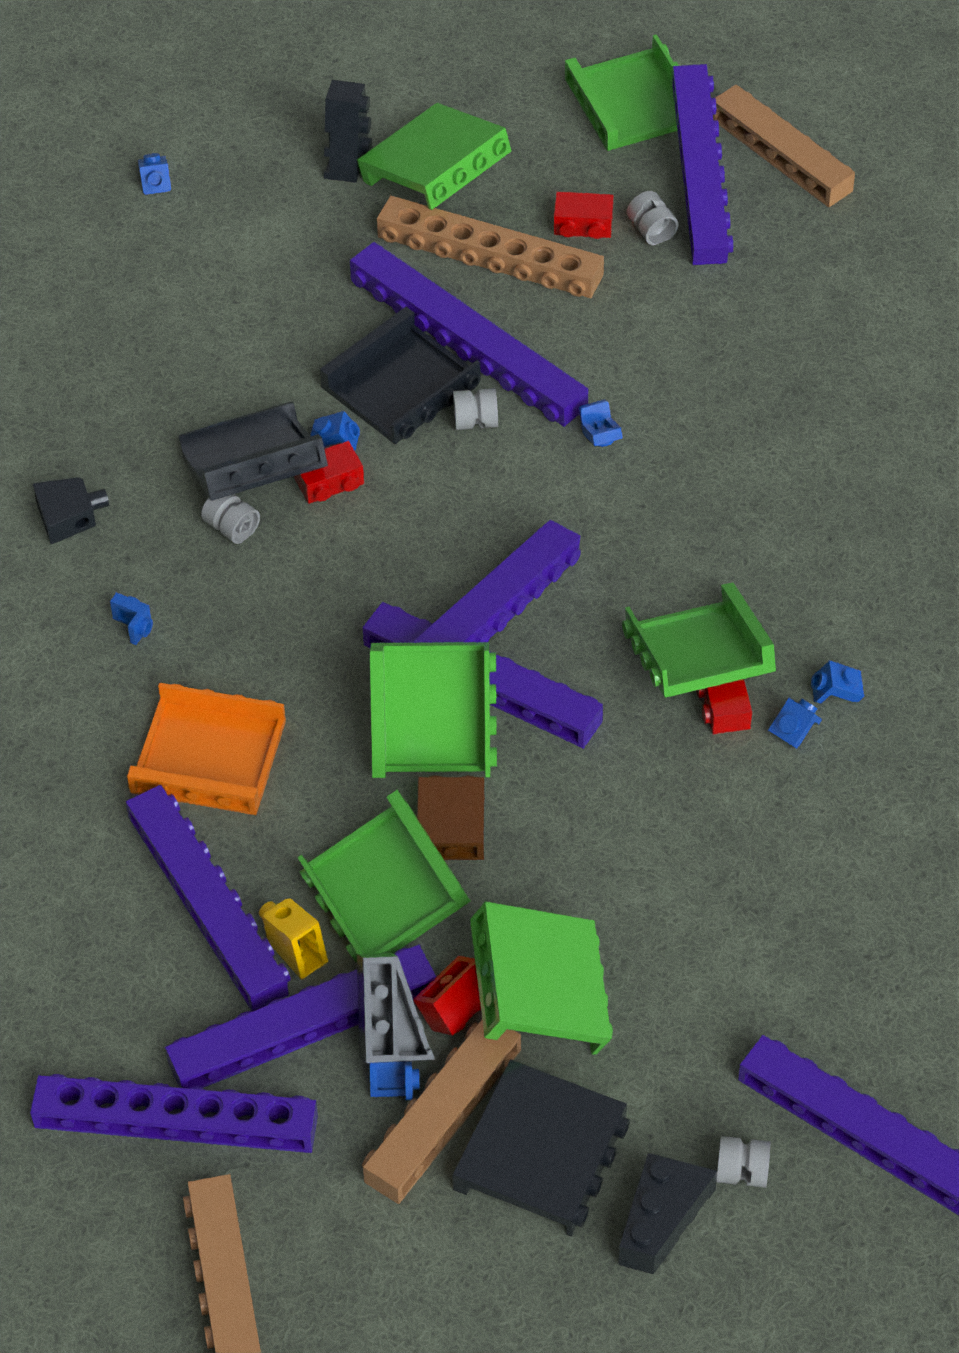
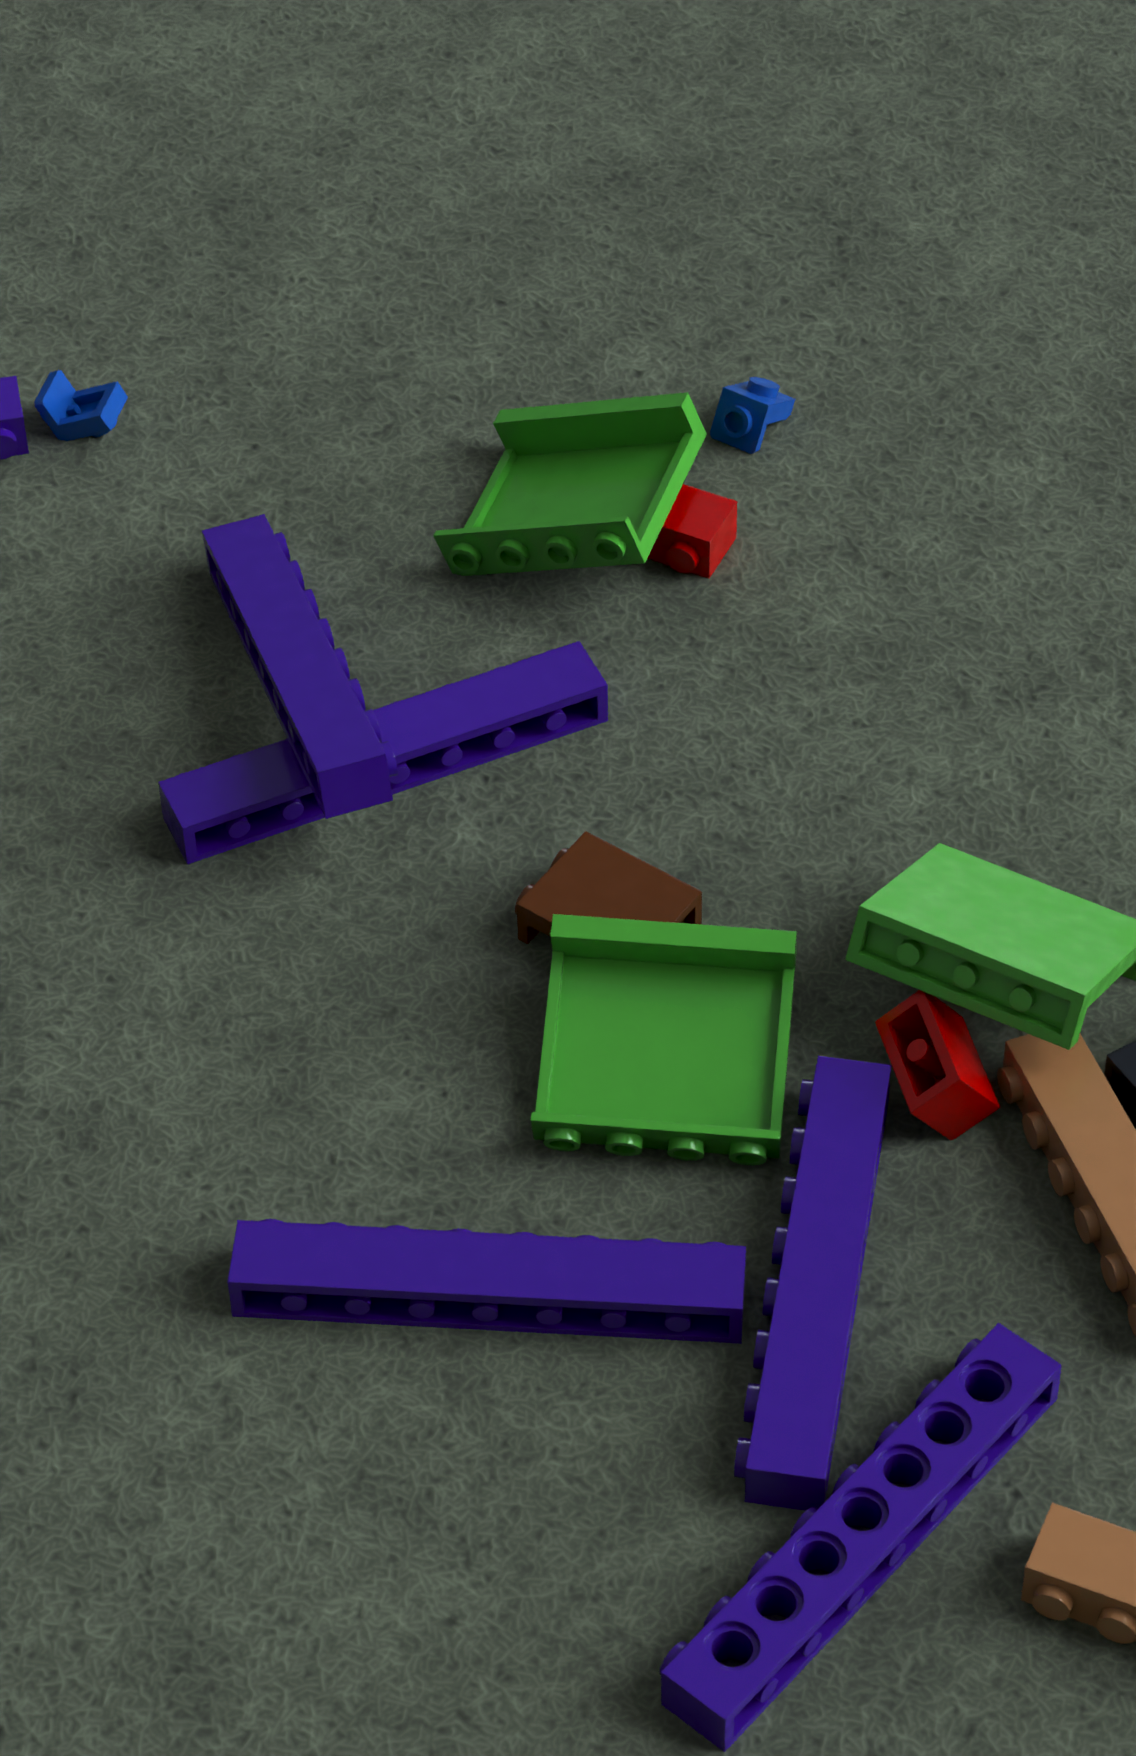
camera: 55 degrees left, 5 degrees down
(209, 748) = (203, 1137): orange panel -> none
(288, 924) = (662, 1195): yellow torso -> none
(387, 1013) = (922, 1144): wedge -> none
(393, 1079) = (1020, 1215): blue bracket -> none
(432, 707) = (433, 804): bright green panel -> none
(794, 721) = (777, 481): blue bracket -> none

